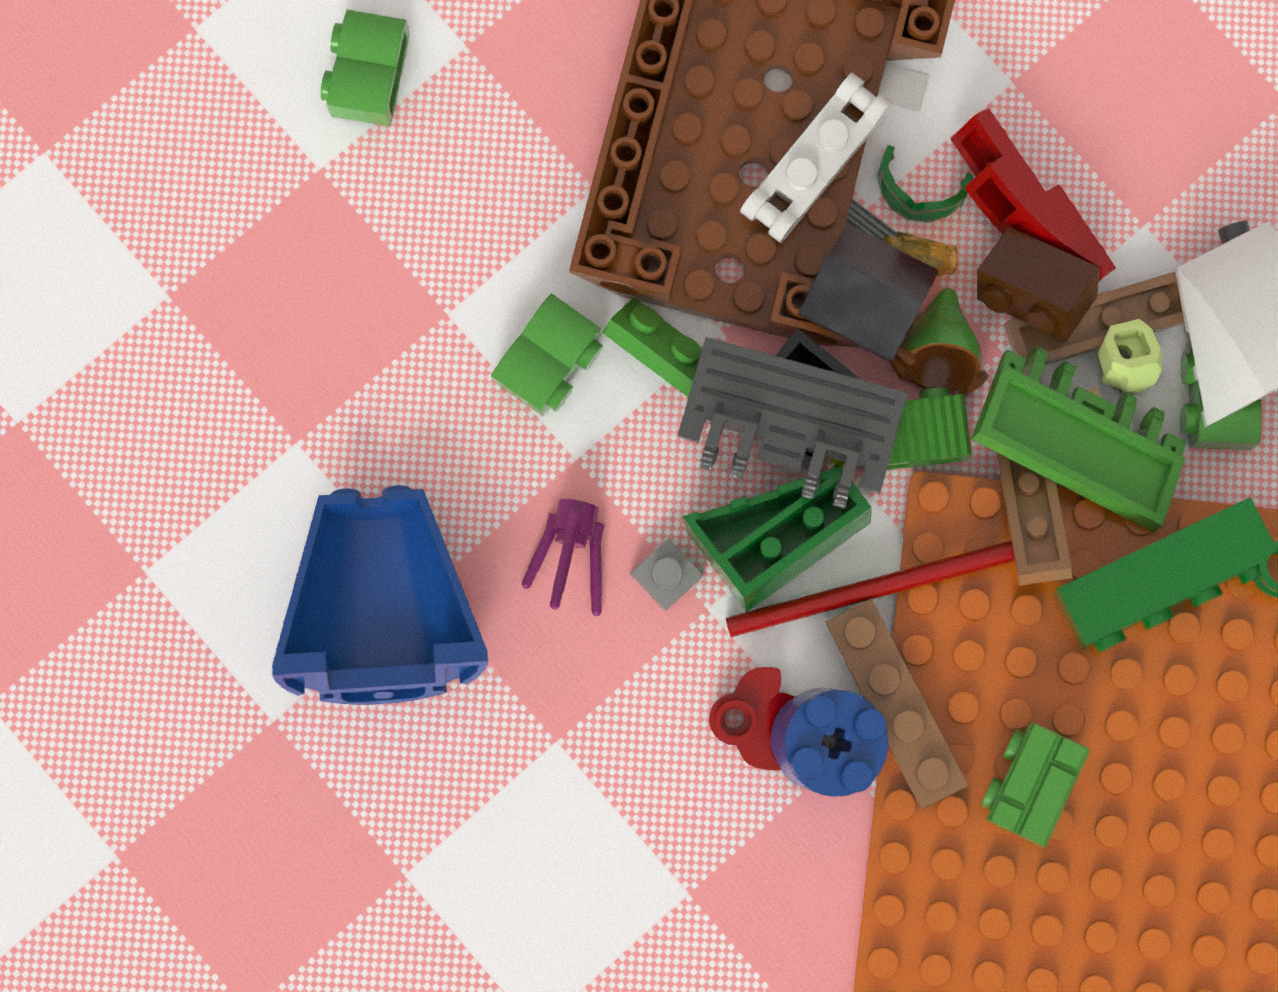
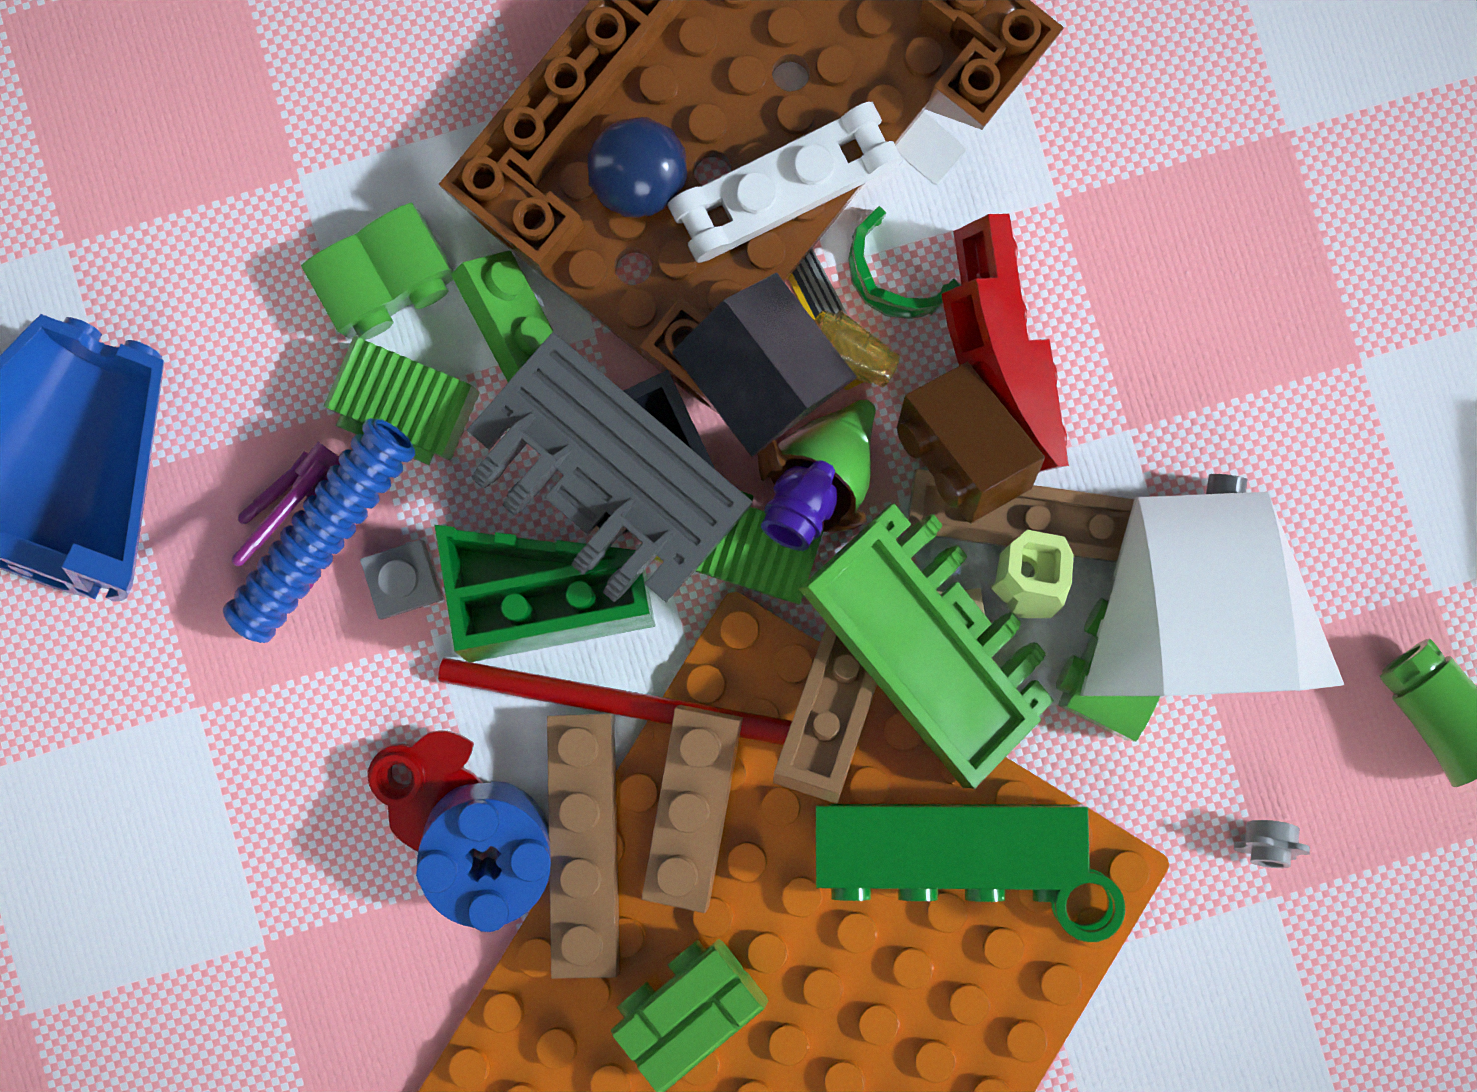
camera: 30 degrees right, 5 degrees up
(597, 562) = (318, 531): none -> blue piece
(608, 442) = (405, 393): none -> bright green brick
(704, 194) = (637, 166): none -> dark blue hair
(942, 379) = (800, 505): none -> dark purple animal
(965, 637) = (692, 808): none -> medium nougat plate

